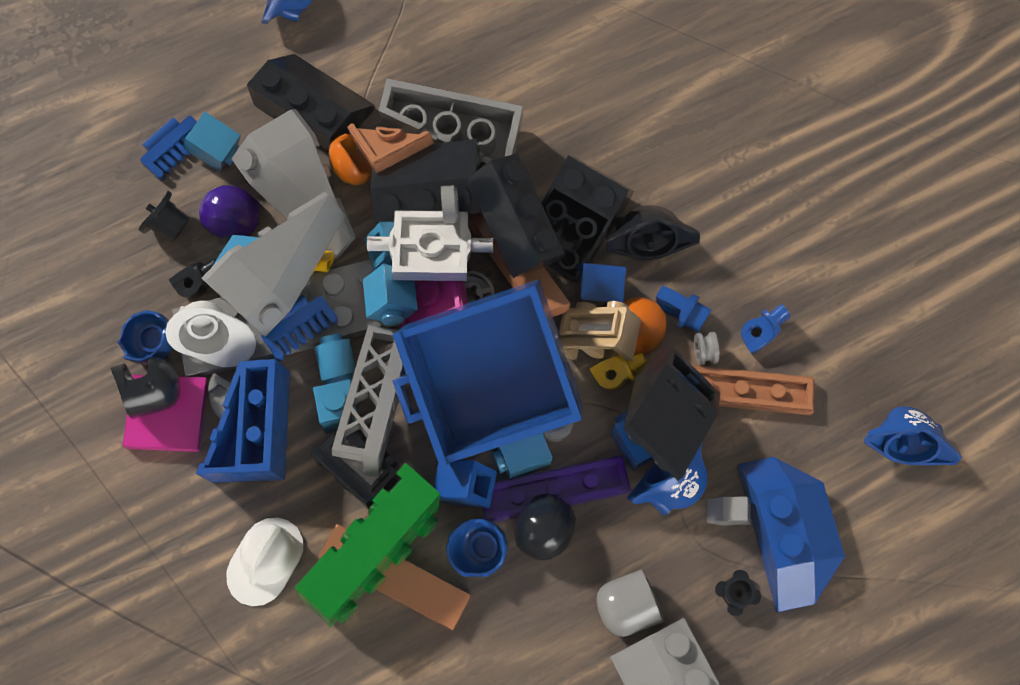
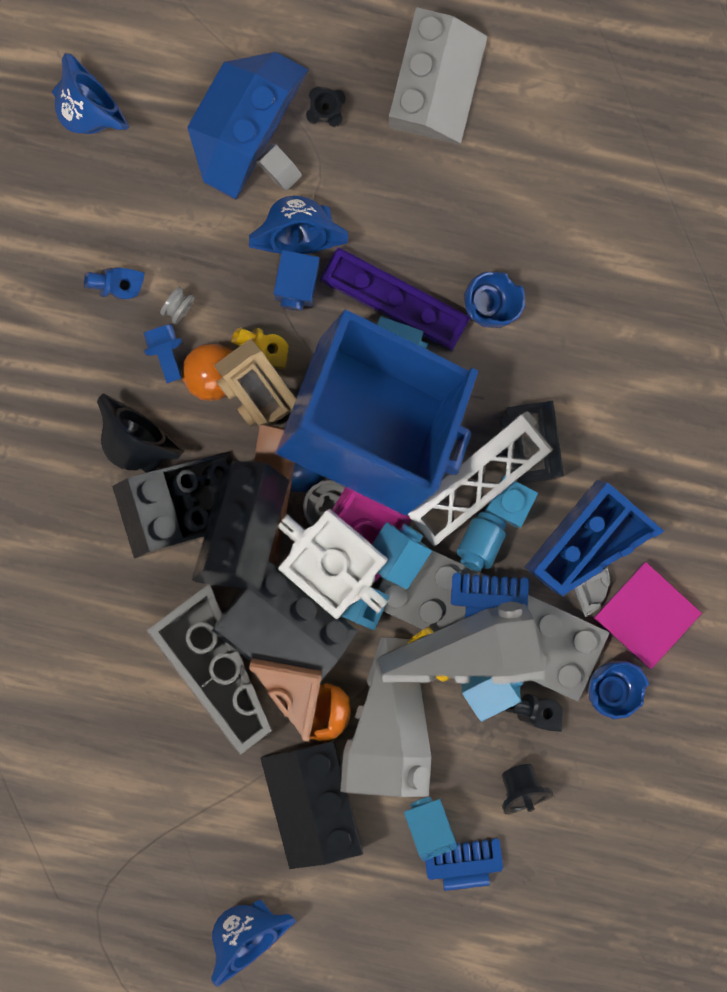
camera: 135 degrees left, 15 degrees up
(150, 393) = (649, 635): black helmet -> none
(210, 335) = (567, 643): white piece -> none
(229, 212) = (464, 754): dark purple hair -> none
(264, 561) = (659, 431): white piece -> none
(370, 548) = (576, 363): green wedge -> none
(416, 588) = (571, 335): nougat tile -> none
(450, 204) = (291, 579): light grey tile -> none
(465, 484) = (465, 350): blue brick -> none
(545, 527) = (428, 273): black hair -> none
(601, 282) = (214, 426): blue panel -> none
(628, 605) = (416, 162): light grey helmet -> none
(671, 410) = (261, 269): black slope -> none
(761, 390) = (178, 253): nougat tile -> none

